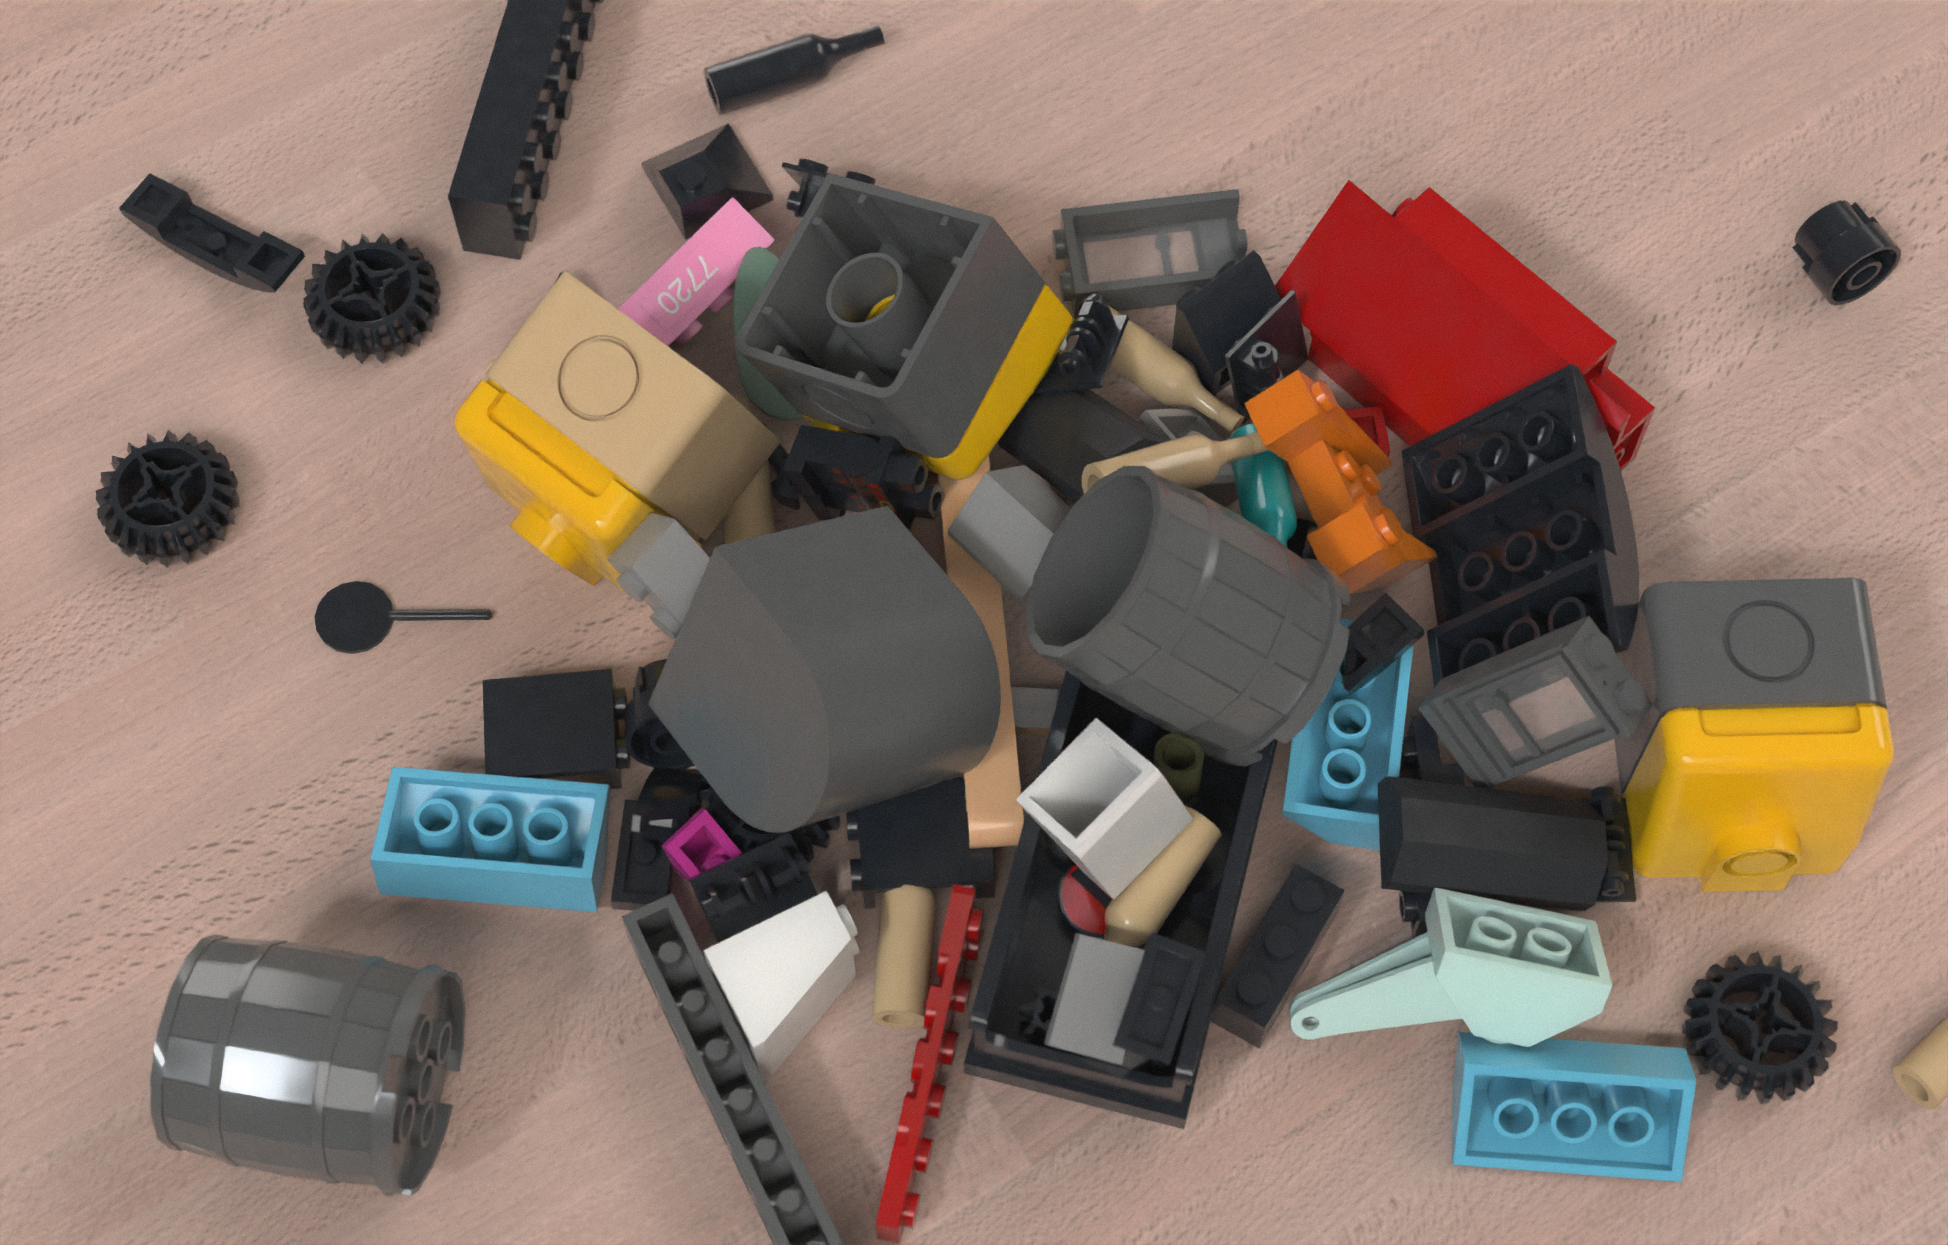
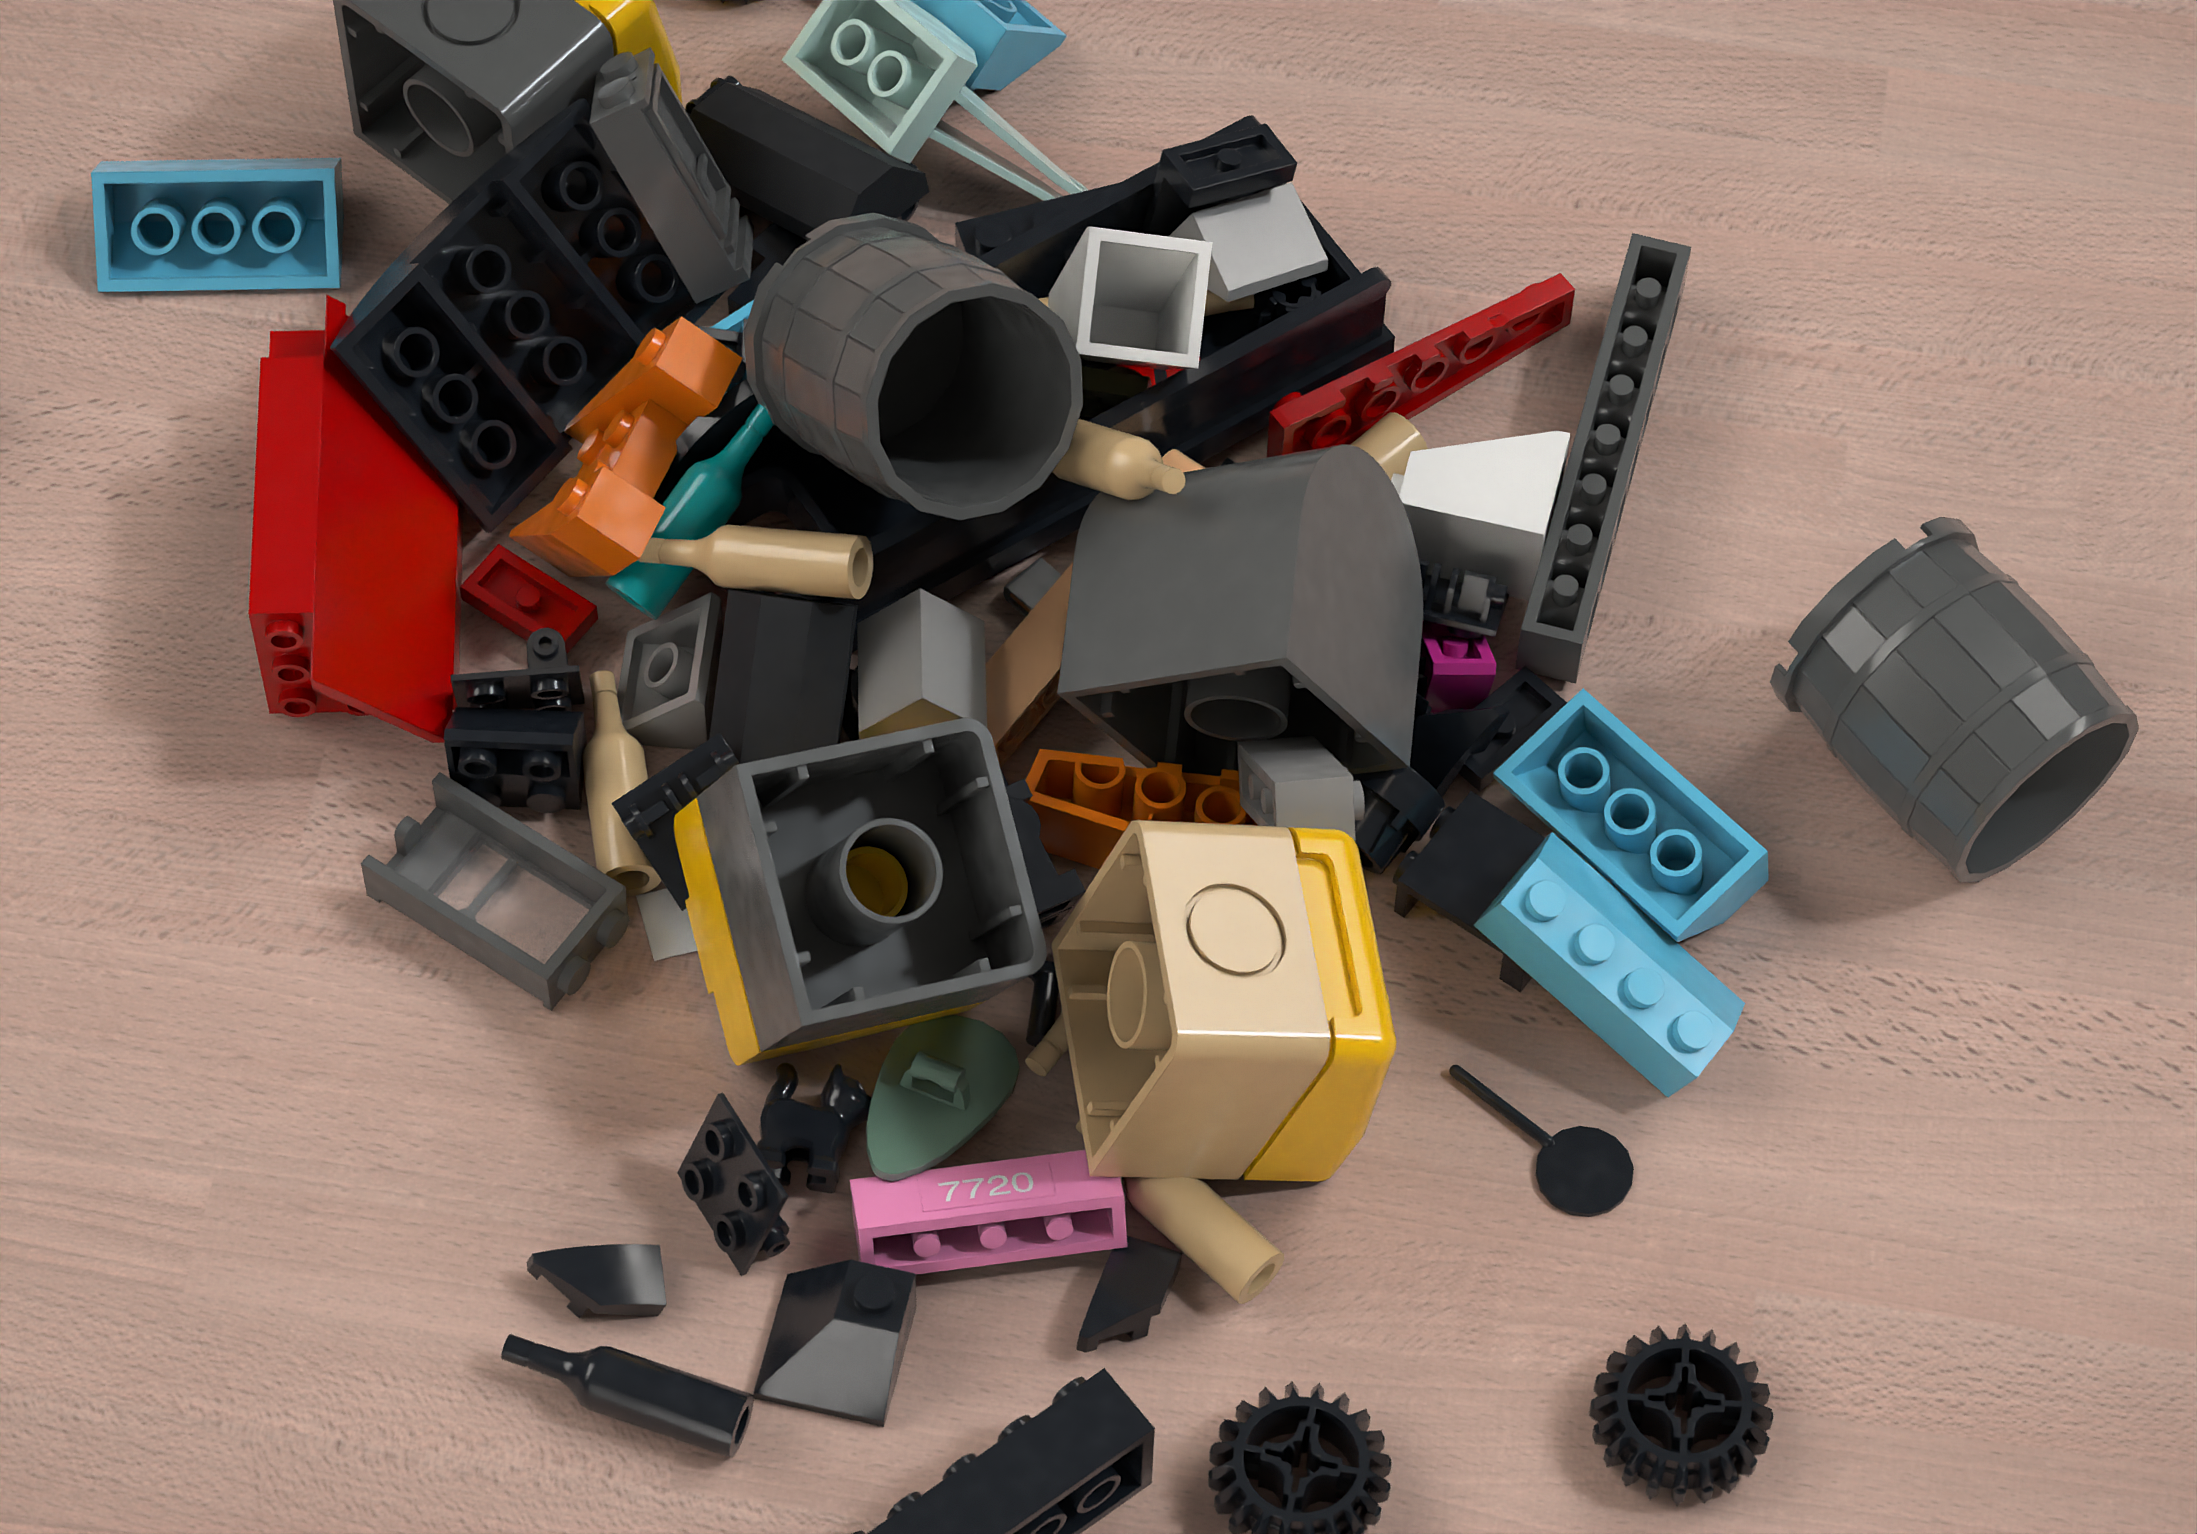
camera: 140 degrees left, 5 degrees down
(429, 712) = (1612, 966): none -> medium azure slope
(865, 109) = (605, 1278): none -> black slope
(995, 665) = (1116, 463): none -> tan piece
(1814, 509) = (218, 224): none -> medium azure slope

